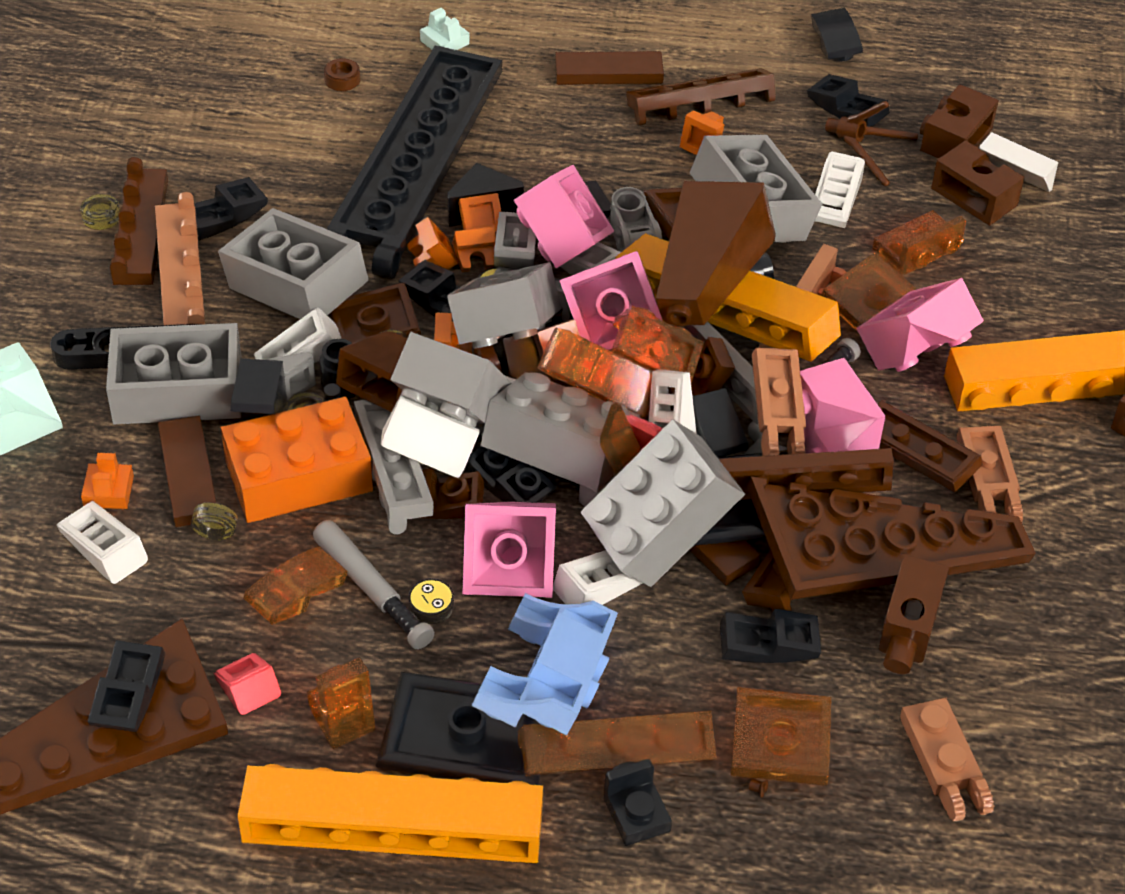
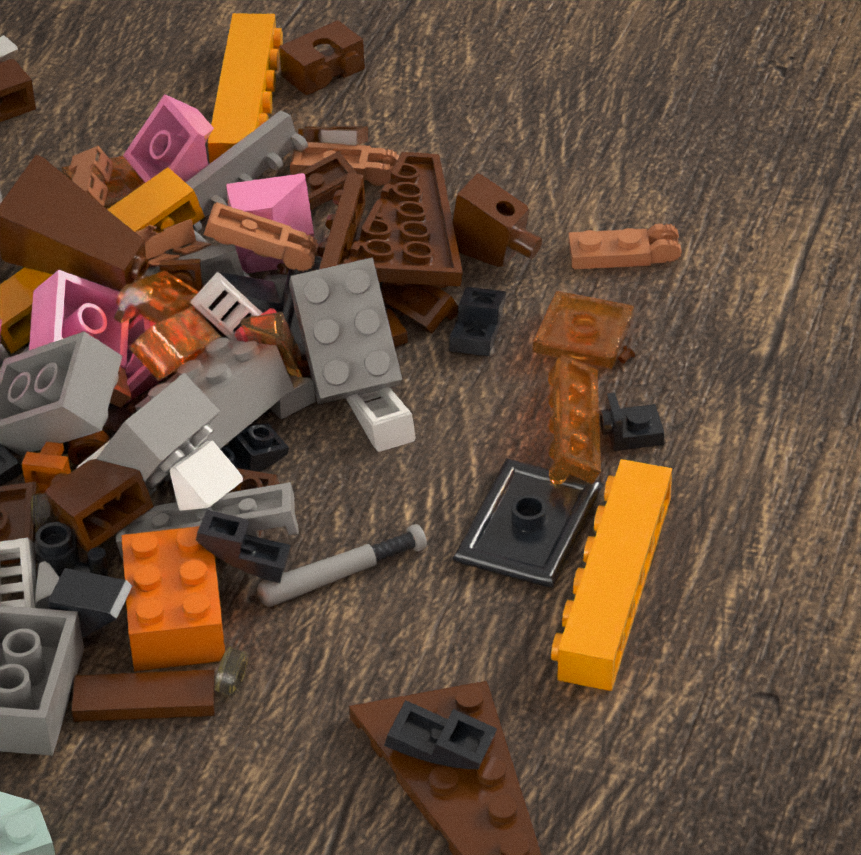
camera: 75 degrees left, 5 degrees down
(107, 544) = (223, 749): white slope -> none
(108, 482) = (141, 763): orange tile -> none
(248, 683) = (433, 667): coral slope -> none
(290, 586) = (332, 618): clear orange slope -> none
(343, 703) = (492, 590): clear orange plate -> none
(350, 488) = (228, 540): none -> black slope
(431, 601) = (374, 526): tile -> none
(509, 549) = (341, 451): bright pink slope -> none
(564, 669) = (521, 431): light blue bracket -> none
(747, 330) = (171, 237): none -> nougat piece
(845, 276) = (83, 164): none -> nougat piece
(920, 241) = (47, 140): clear orange bracket -> none
(926, 382) = (246, 161): none -> light grey hinge
(1030, 461) = (335, 134): none -> reddish brown plate

